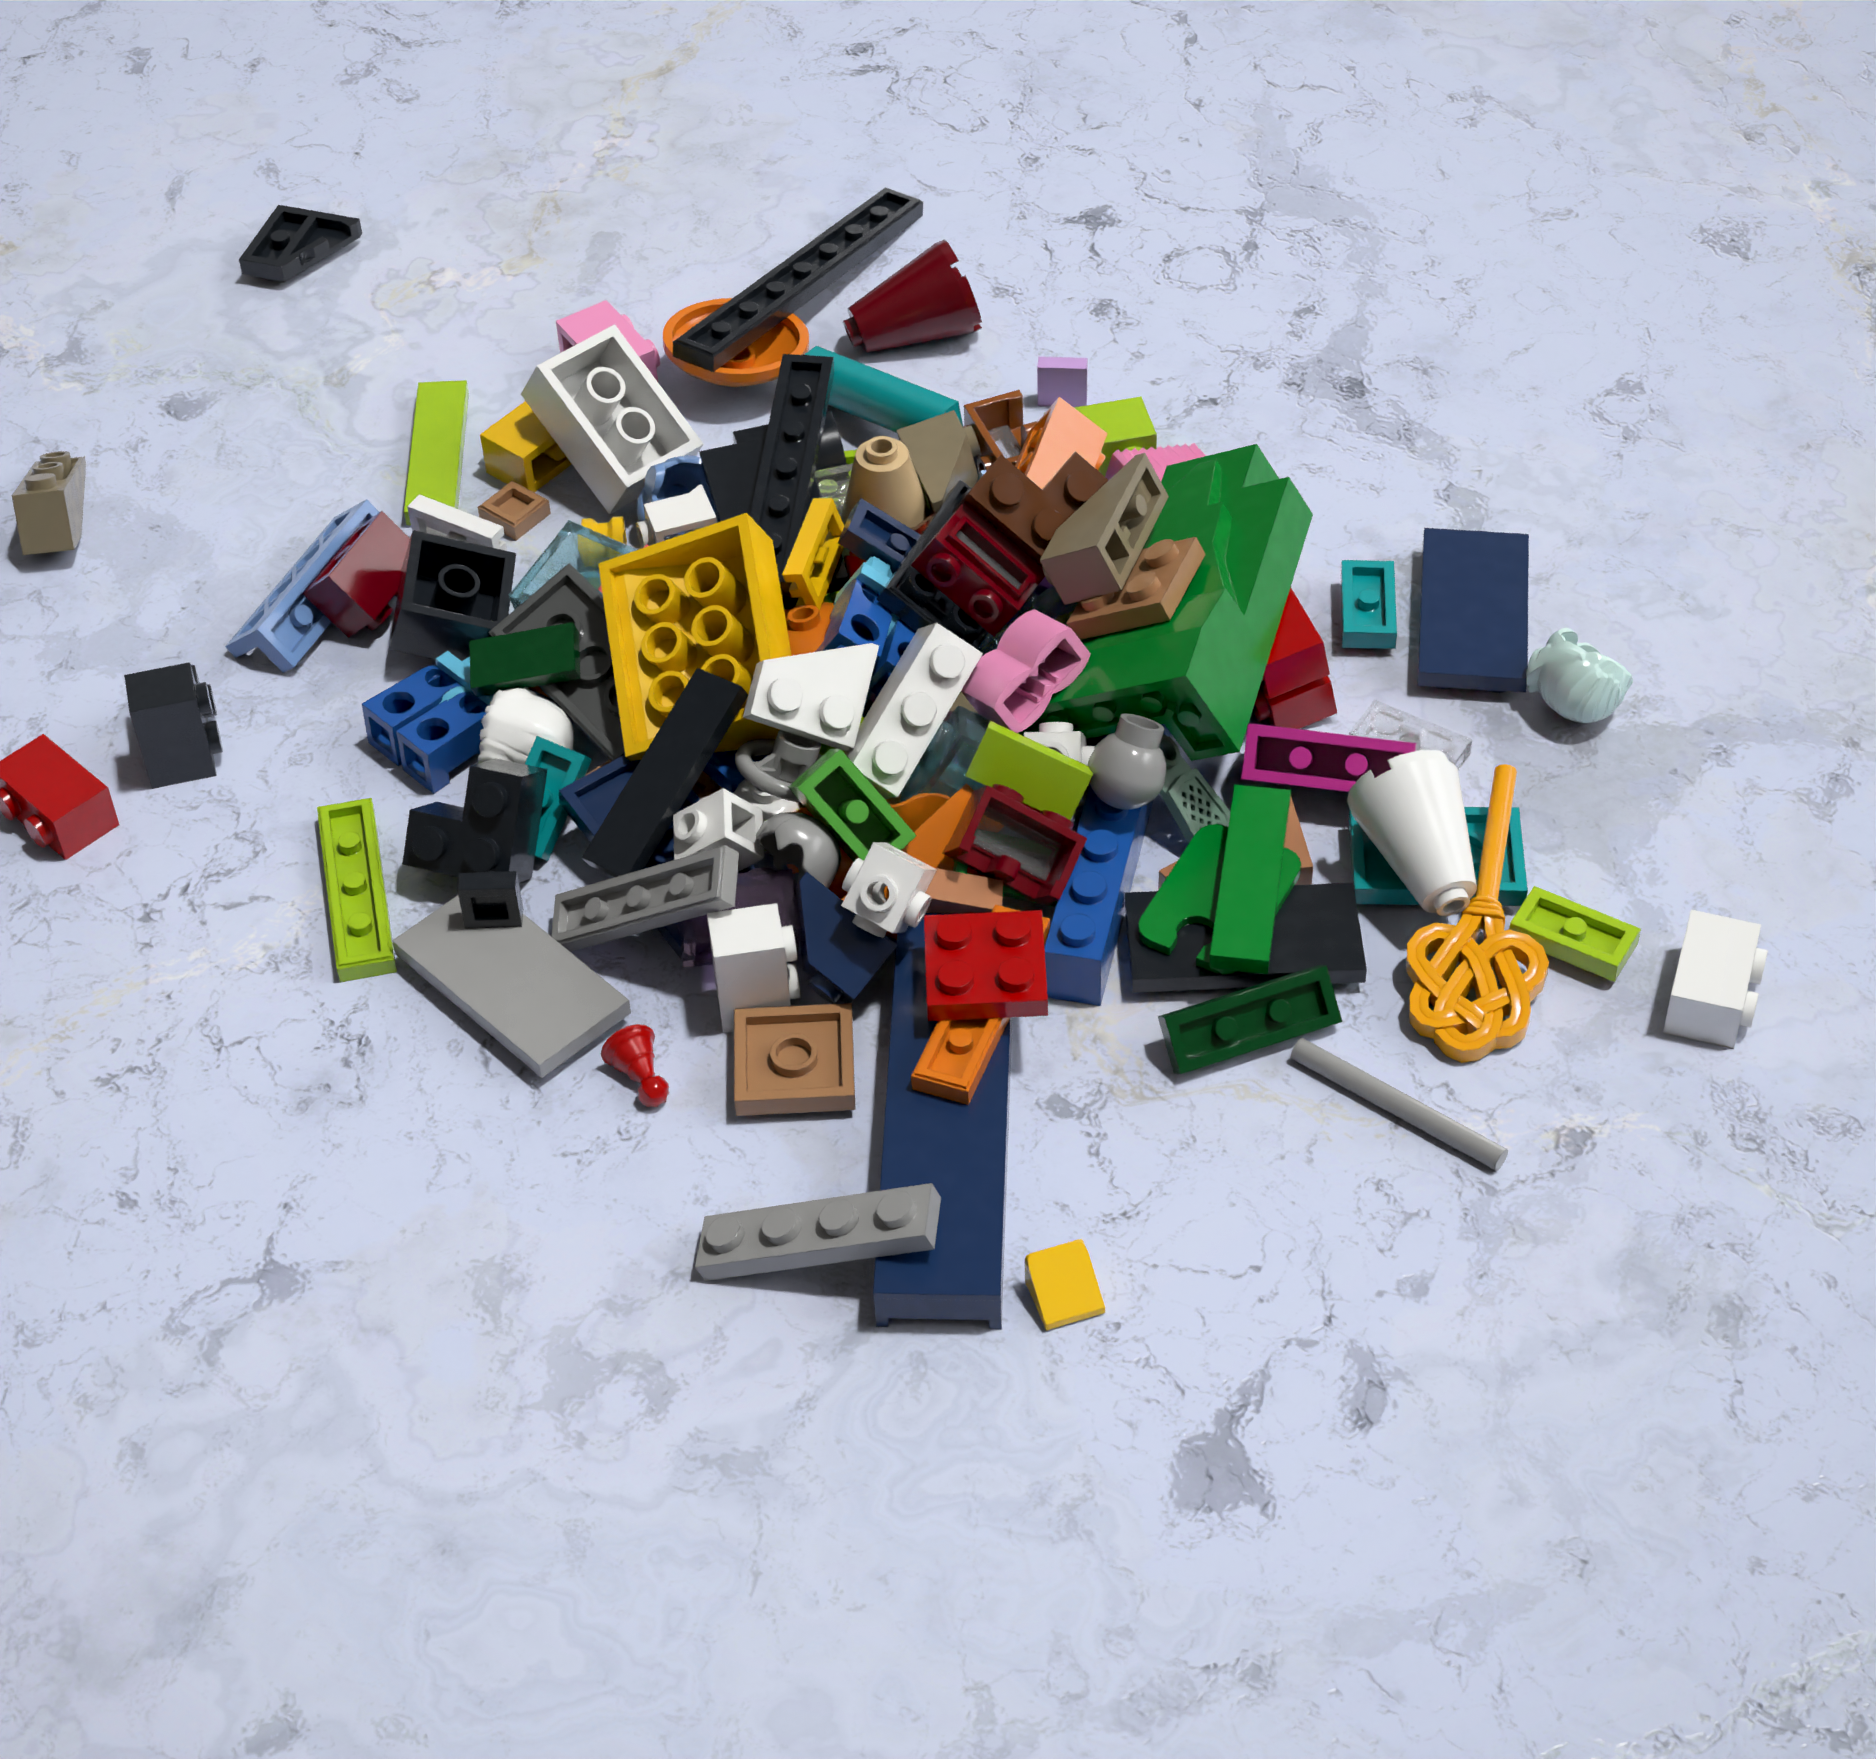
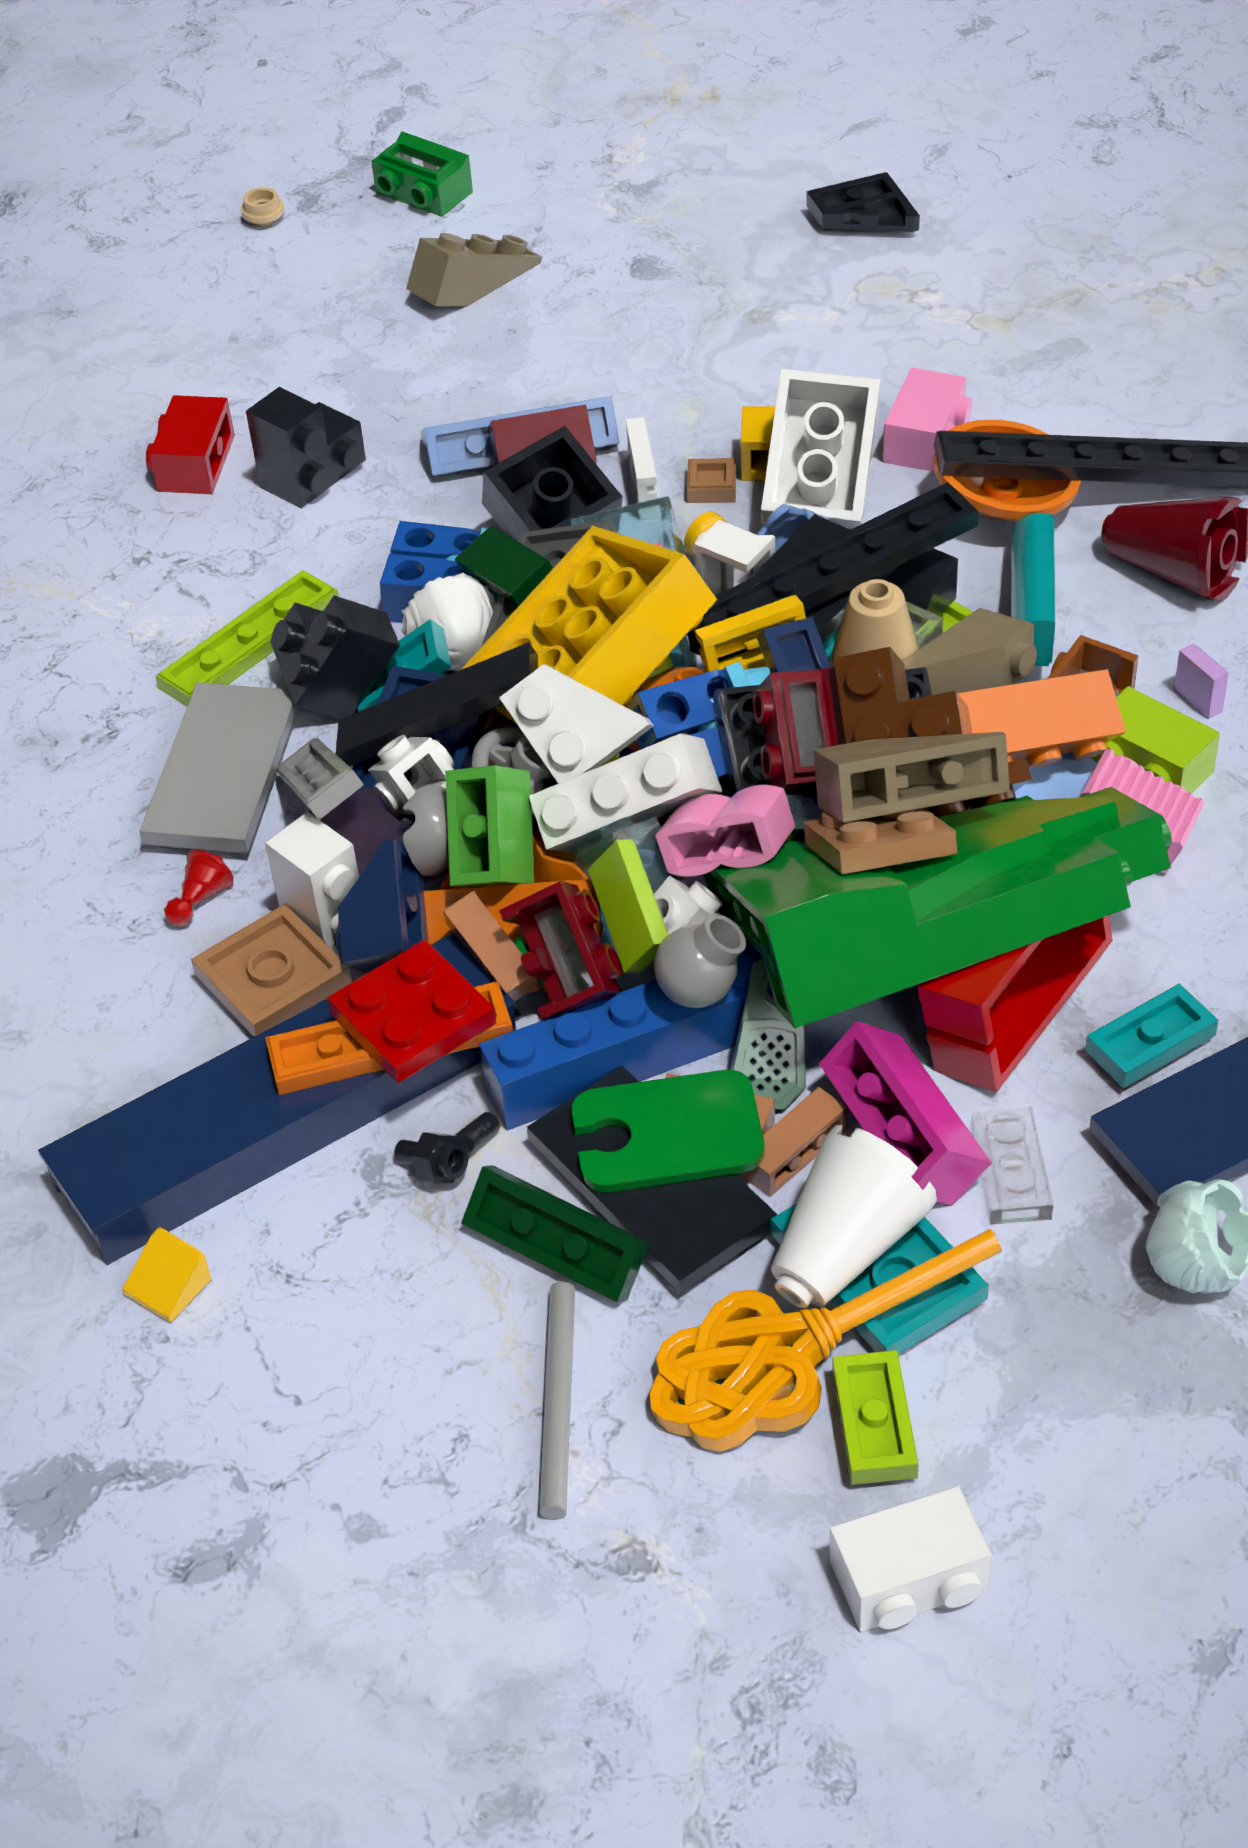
camera: 55 degrees right, 0 degrees up
(437, 443) = (719, 408): lime tile -> none
(490, 899) = (260, 700): black plate -> none
(819, 1232) = (82, 1084): light grey plate -> none
(907, 883) = (416, 895): white brick -> none
(1107, 1045) = (445, 1156): none -> black piece
(1250, 879) = (693, 1133): green tile -> none

